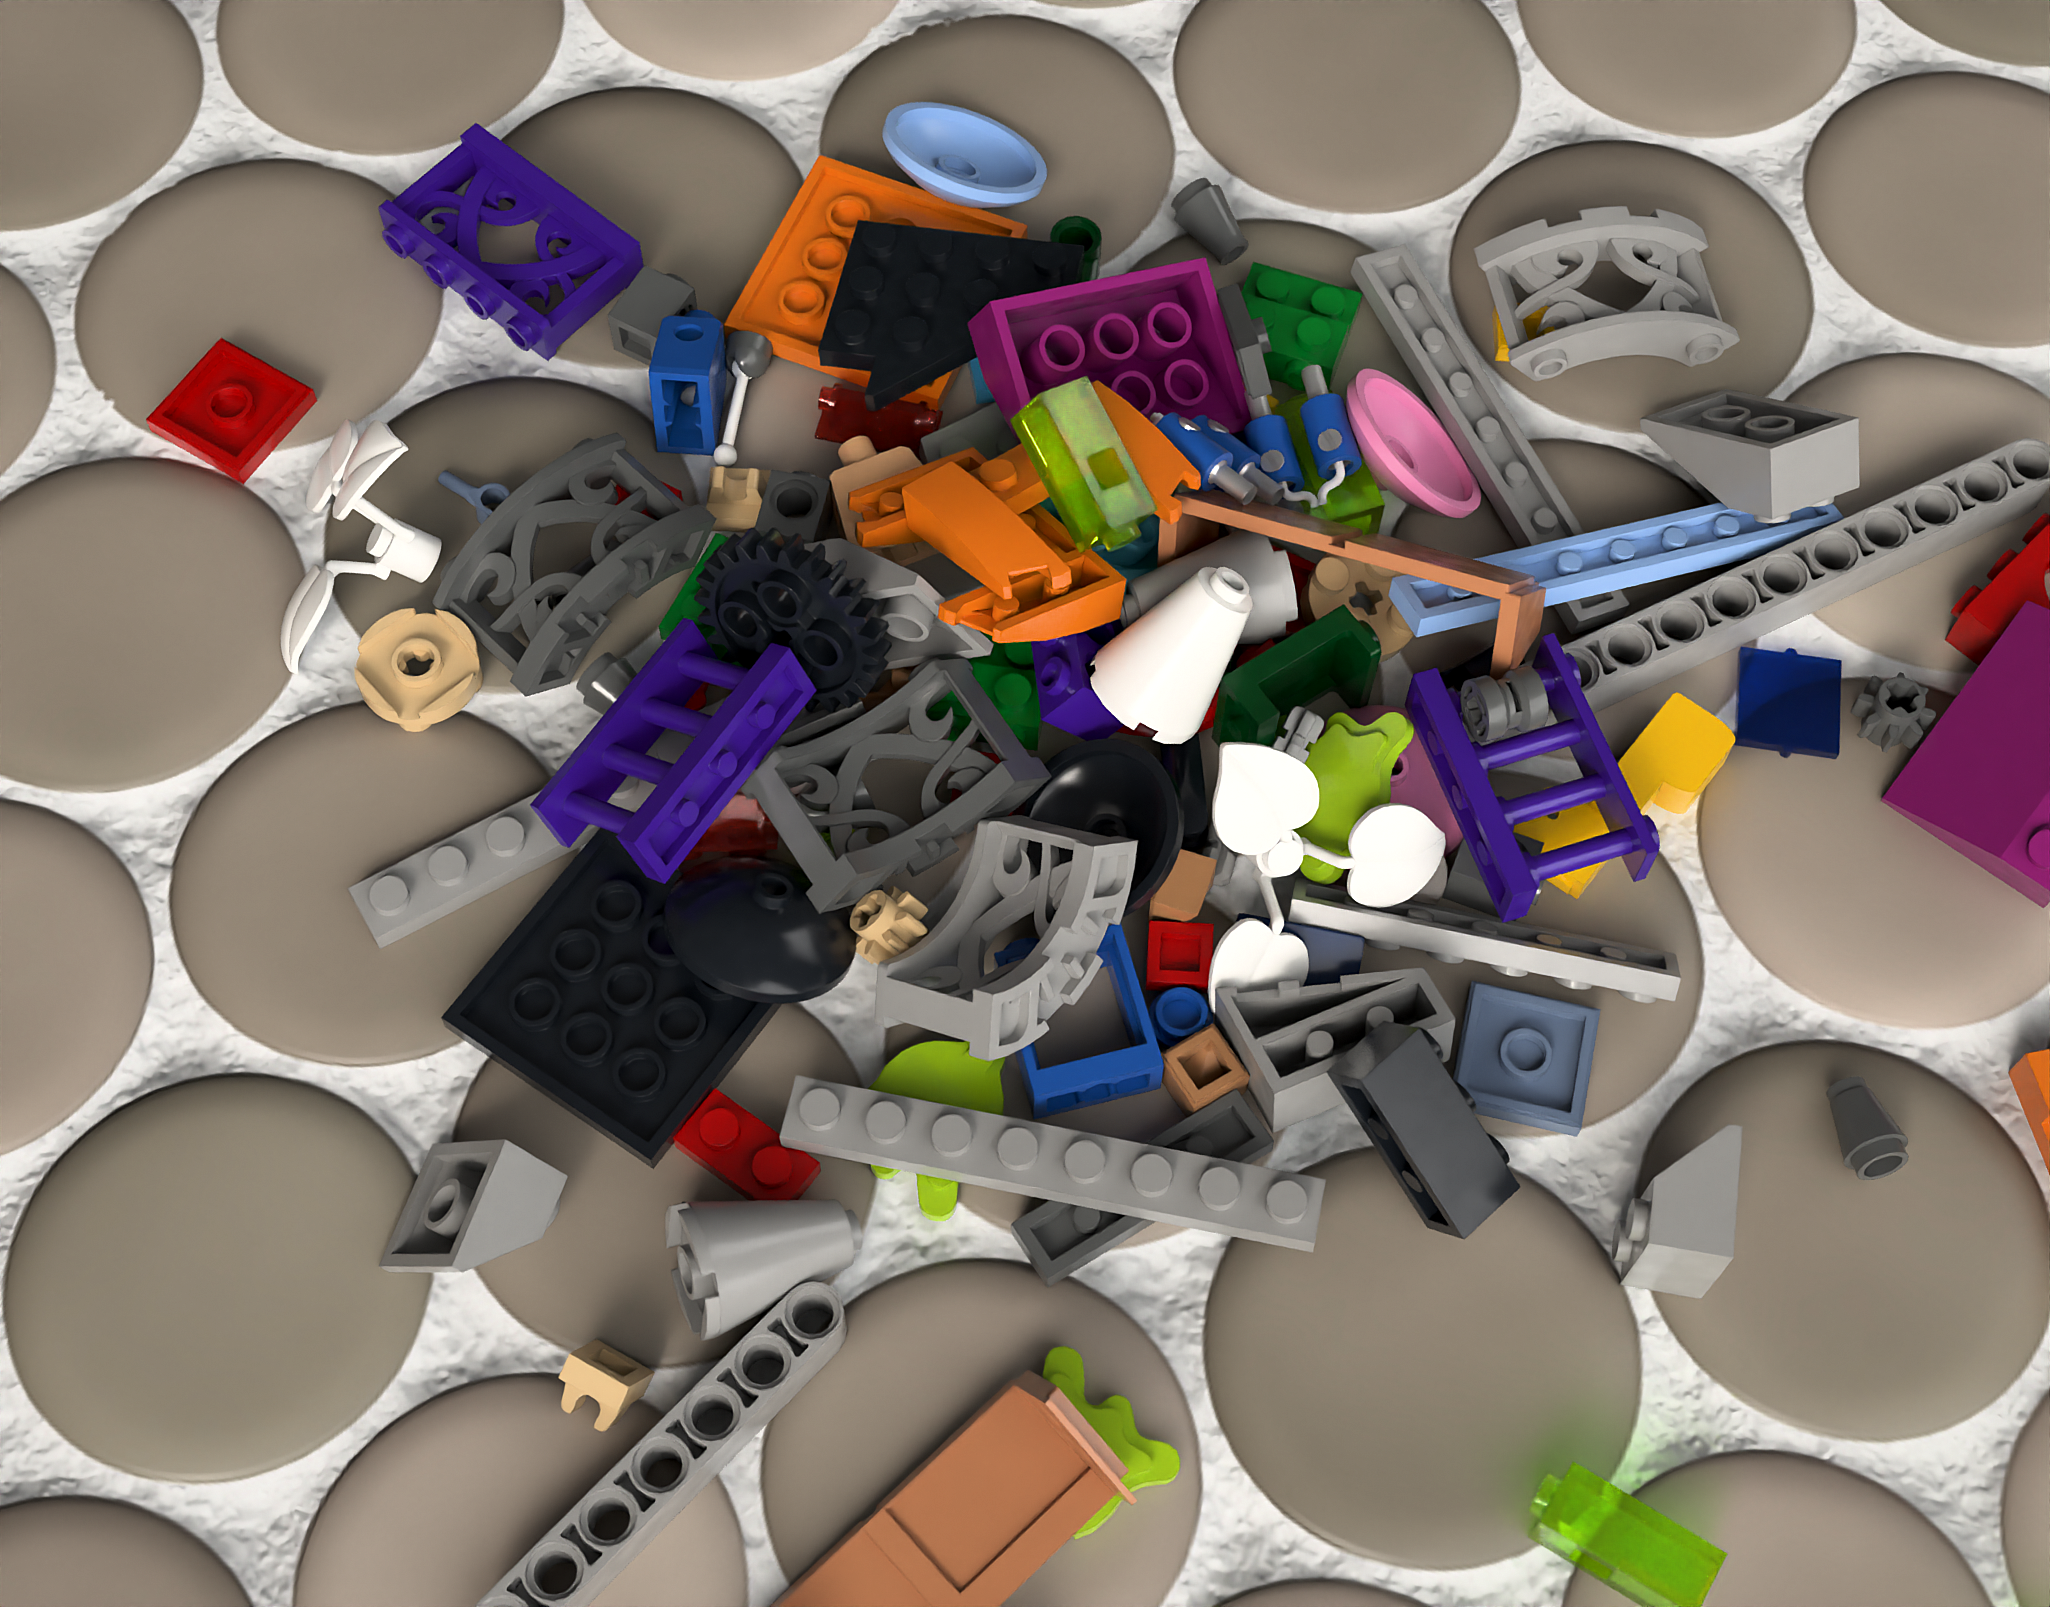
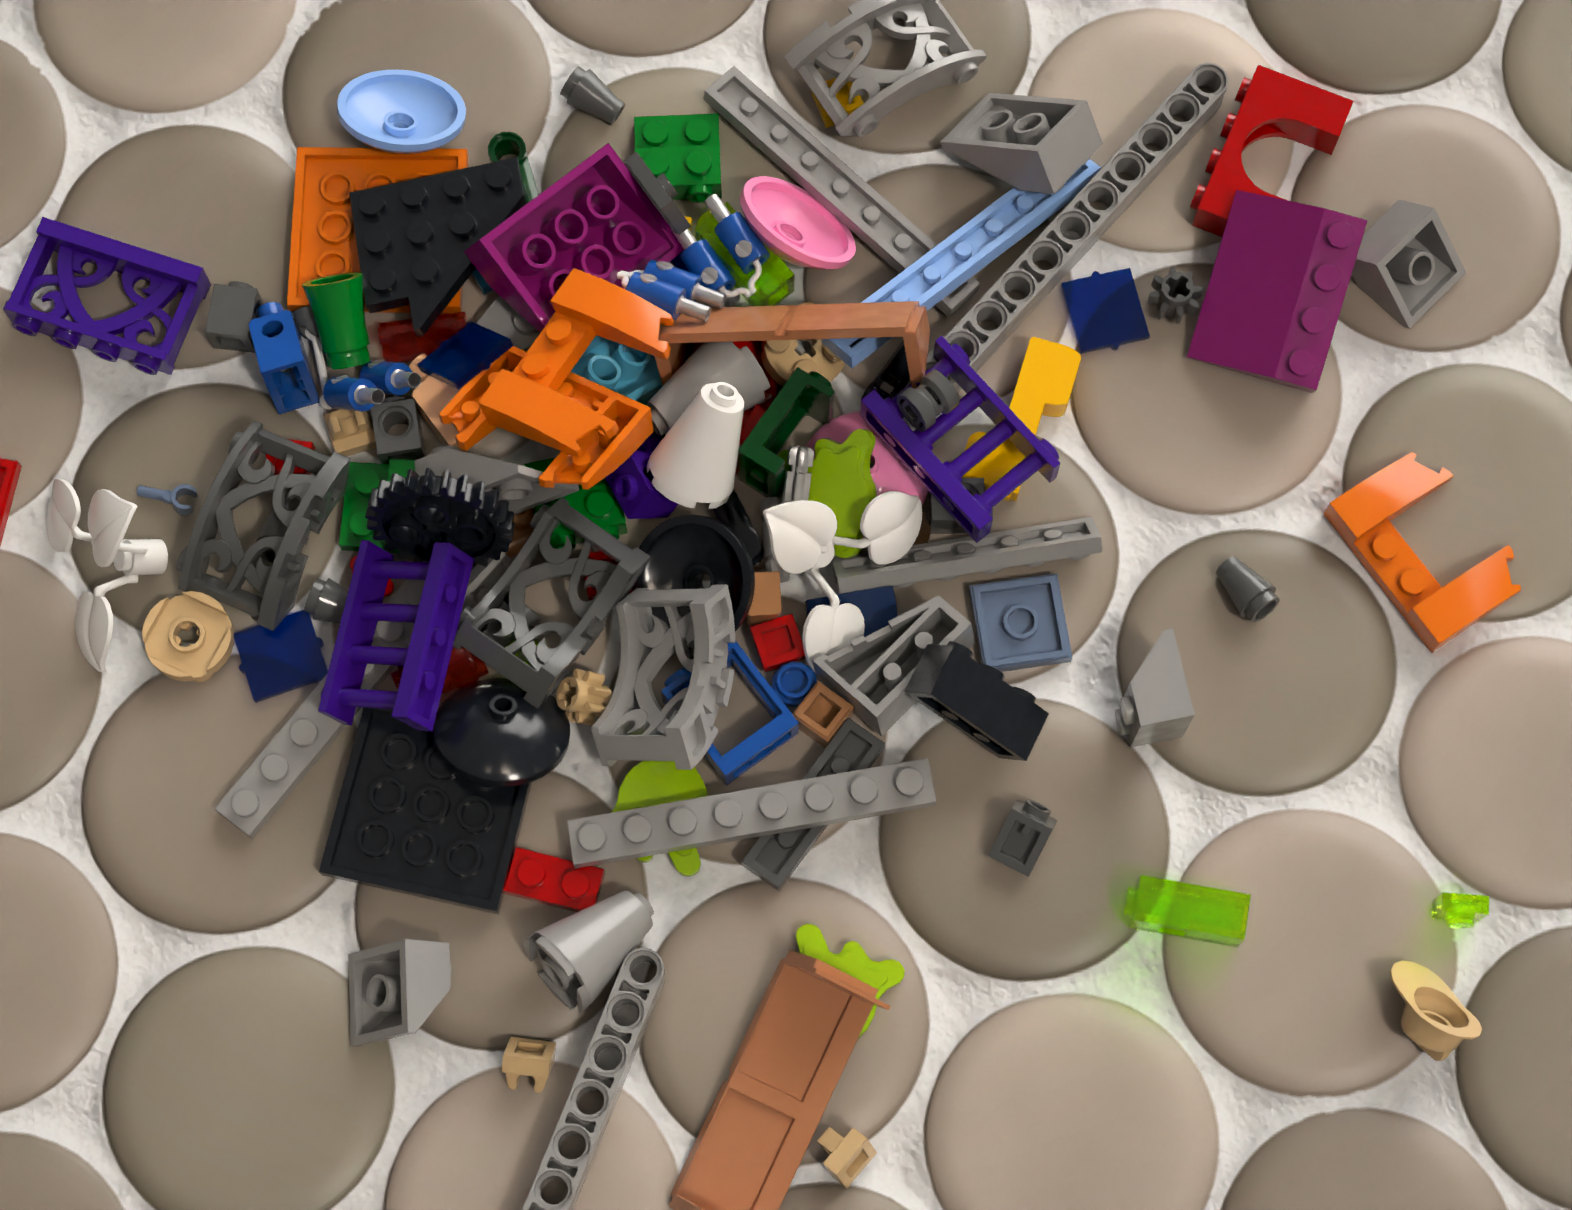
camera: 20 degrees left, 10 degrees up
(521, 736) = (282, 657): none -> clear blue piece
(780, 357) = (340, 318): none -> green plant
(794, 447) = (370, 387): none -> blue piece
(916, 446) = (465, 355): none -> clear blue piece
(1084, 466) = (594, 341): clear neon green brick -> none
(1421, 1344) = (1023, 836): none -> dark grey bracket

